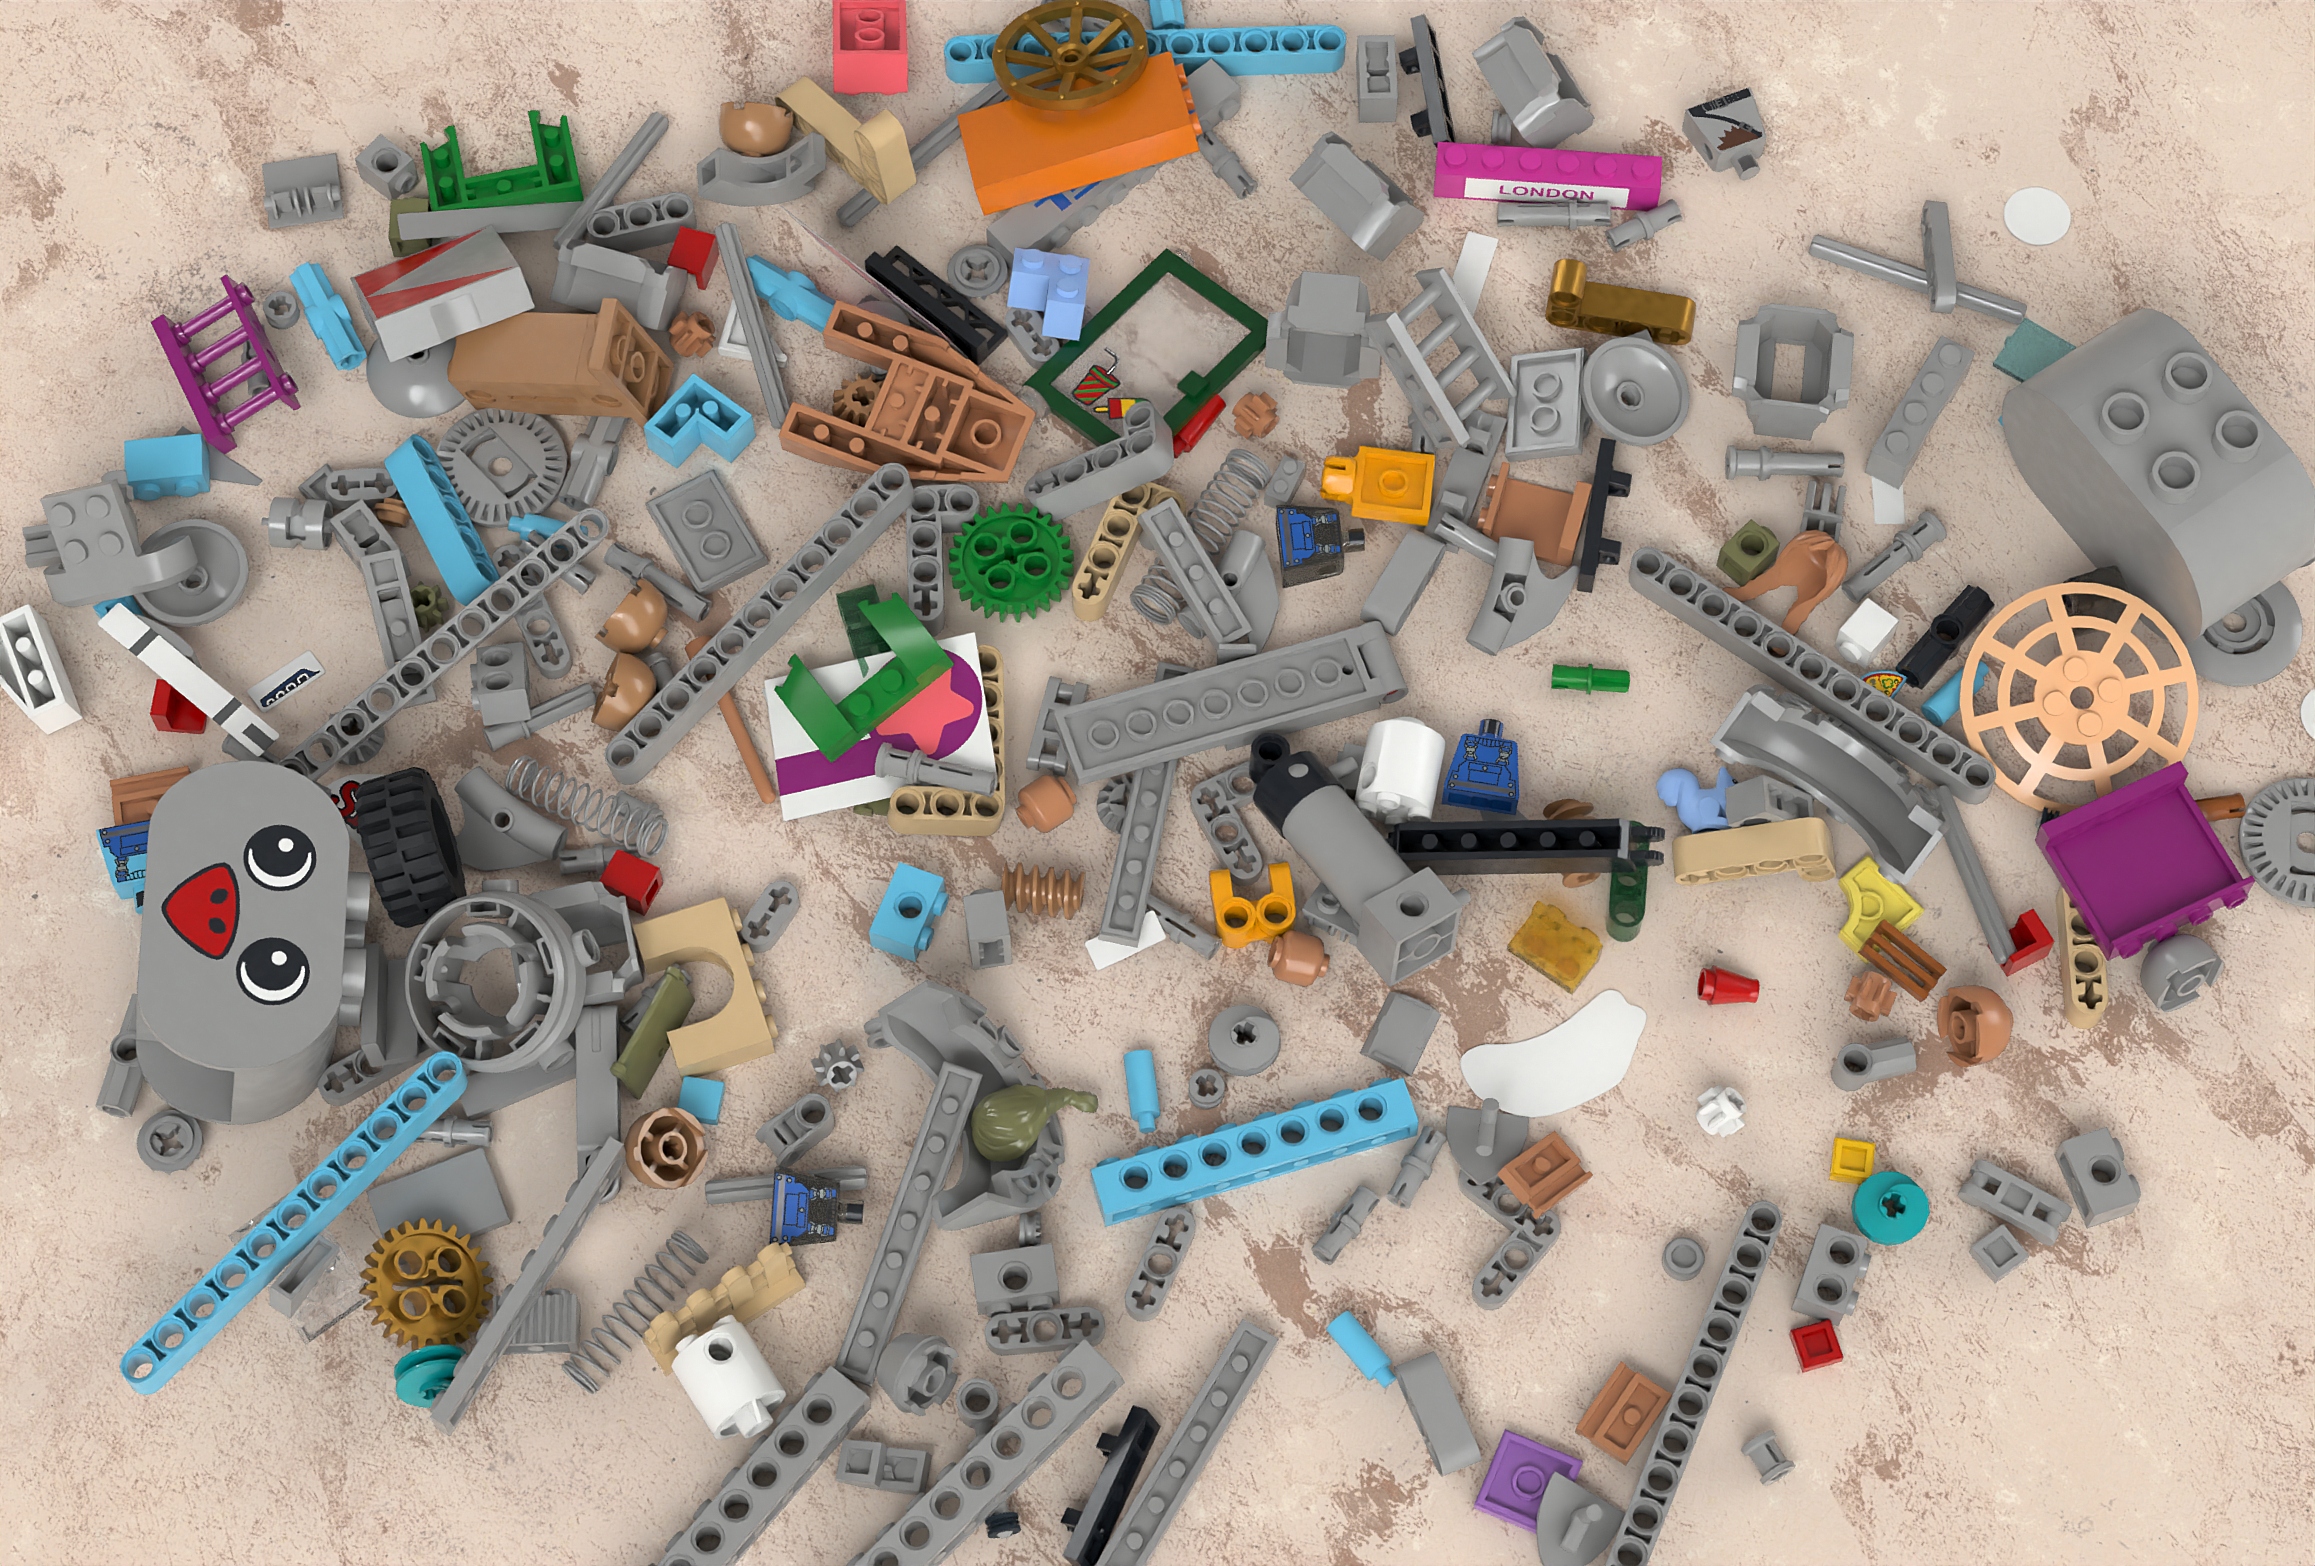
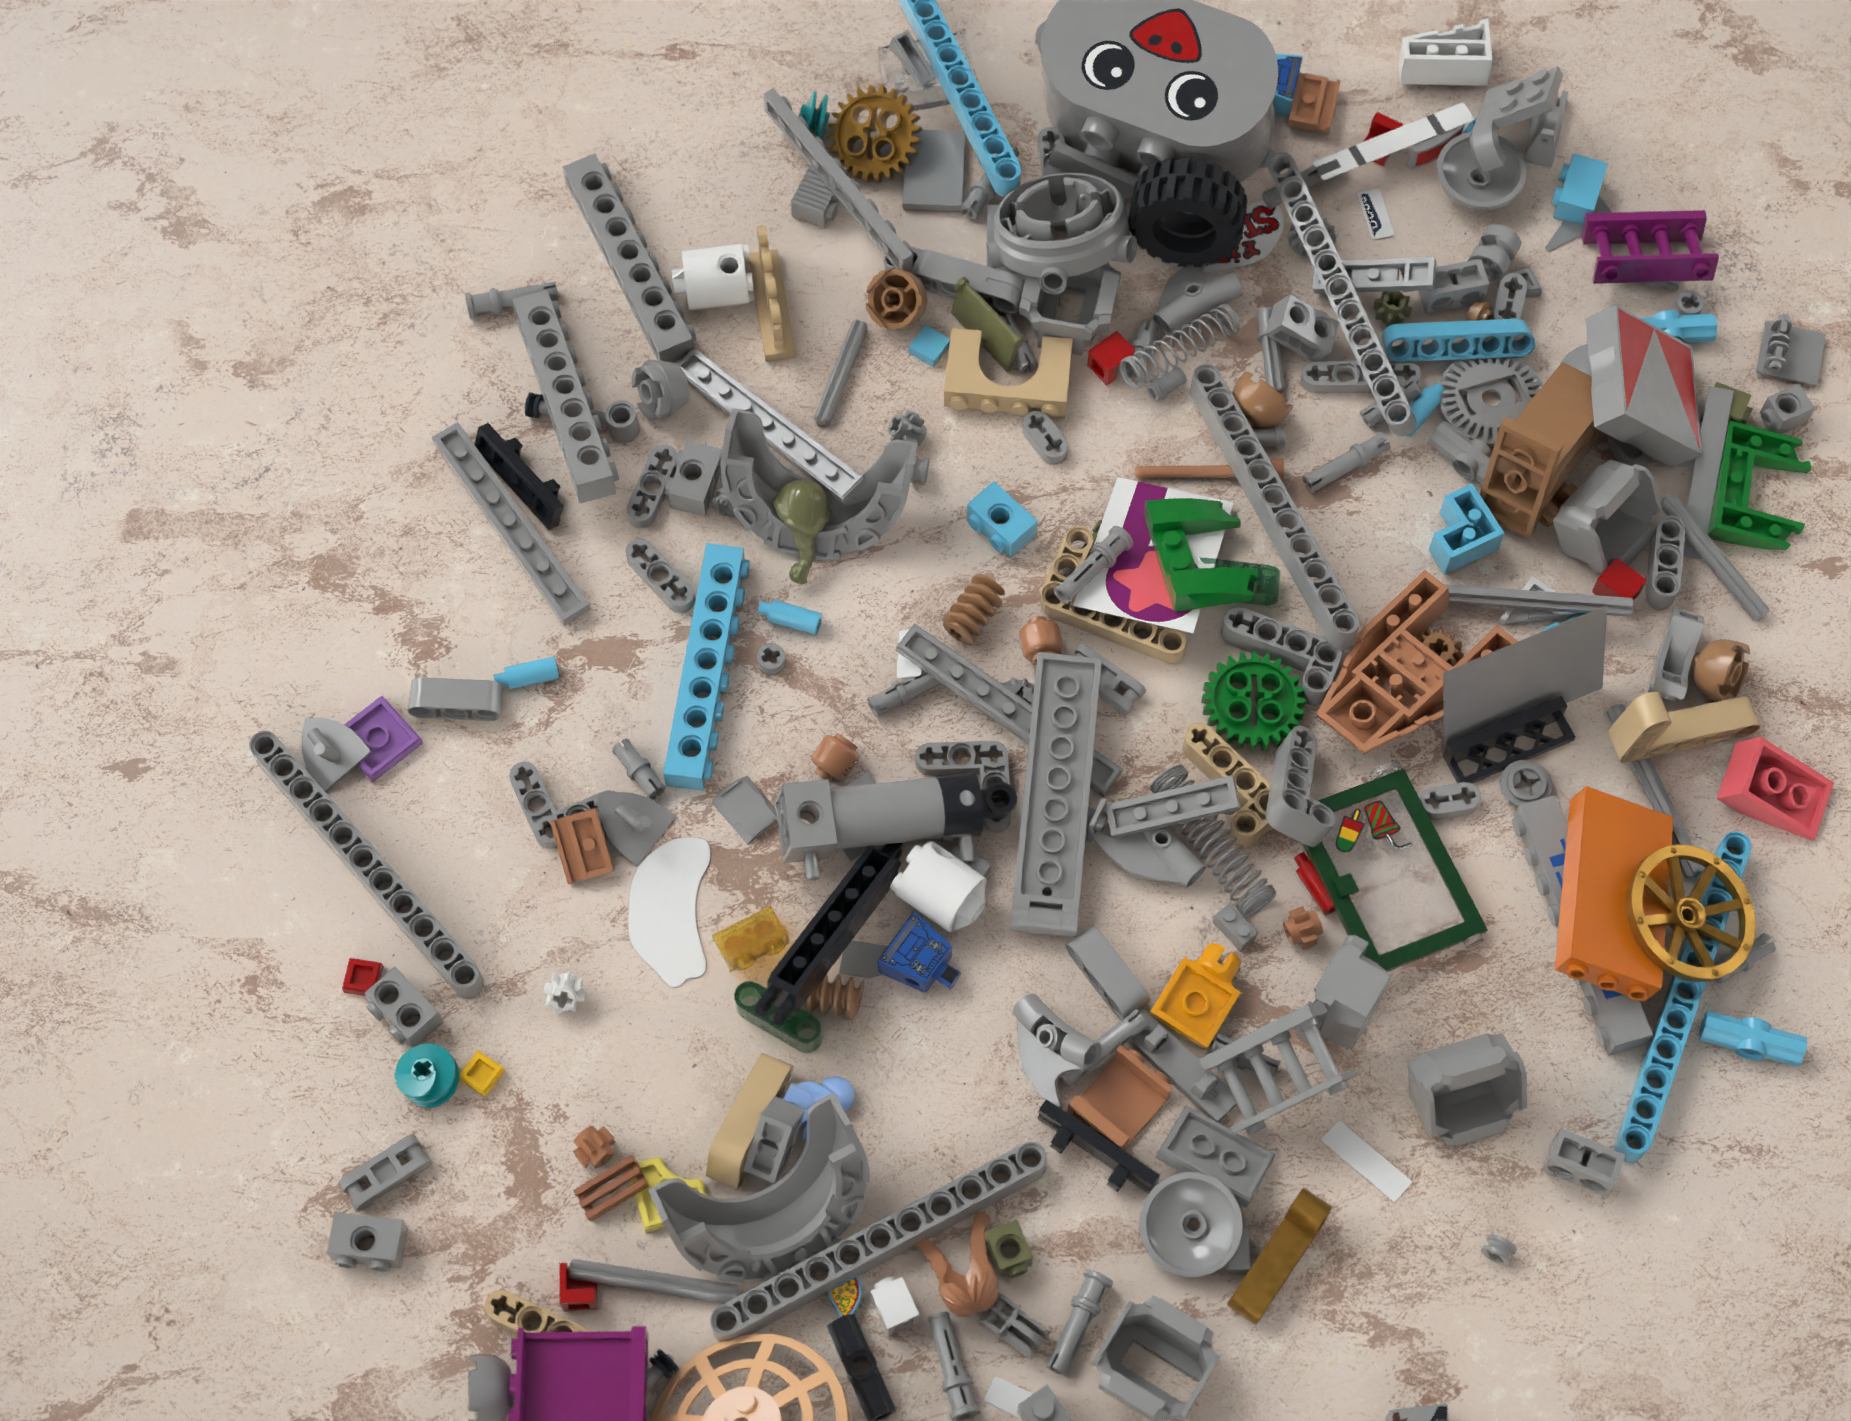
camera: 115 degrees right, 0 degrees up
(636, 621) = (1316, 431): medium nougat cylinder -> none
(690, 1248) = (820, 287): light grey piece -> none
(692, 334) = (1553, 566): nougat gear -> none
(706, 533) = (1375, 512): light grey tile -> none
(795, 1131) = (874, 388): light grey piece -> none
(809, 1208) = (811, 370): torso -> none
(882, 1467) = (615, 355): light grey slope -> none
(987, 929) = (957, 555): light grey brick -> none
(1050, 285) = (1477, 826): light blue brick -> none
(1226, 165) = (1551, 1013): light grey pin -> none
(1243, 1022) = (781, 705): light grey piece -> none
(1253, 913) = (904, 728): light orange piece -> none
(1312, 543) = (1171, 920): torso -> none
(1345, 1225) = (621, 702): light grey pin -> none
(1426, 59) = (1560, 1211): hinge -> none
(1533, 85) = (1520, 1284): light grey piece -> none
(1546, 176) = (1431, 1261): dark pink brick -> none
(1562, 214) = (1390, 1265): light grey pin -> none
(1589, 679) = (960, 1074): green axle -> none
(1623, 1413) = (387, 820): nougat plate -> none
(1643, 225) = (1353, 1322): light grey pin -> none
(1683, 1259) = (475, 918): light grey tile -> none
(1726, 987) = (658, 1048): red cone -> none
(1768, 1457) = (301, 899): light grey bush -> none
(1875, 1061) = (542, 1126): light grey piece -> none
(1945, 701) = (806, 1333): medium azure cylinder -> none
(1976, 1024) = (528, 1213): nougat cylinder -> none
(1999, 1253) = (353, 1138): light grey plate -> none

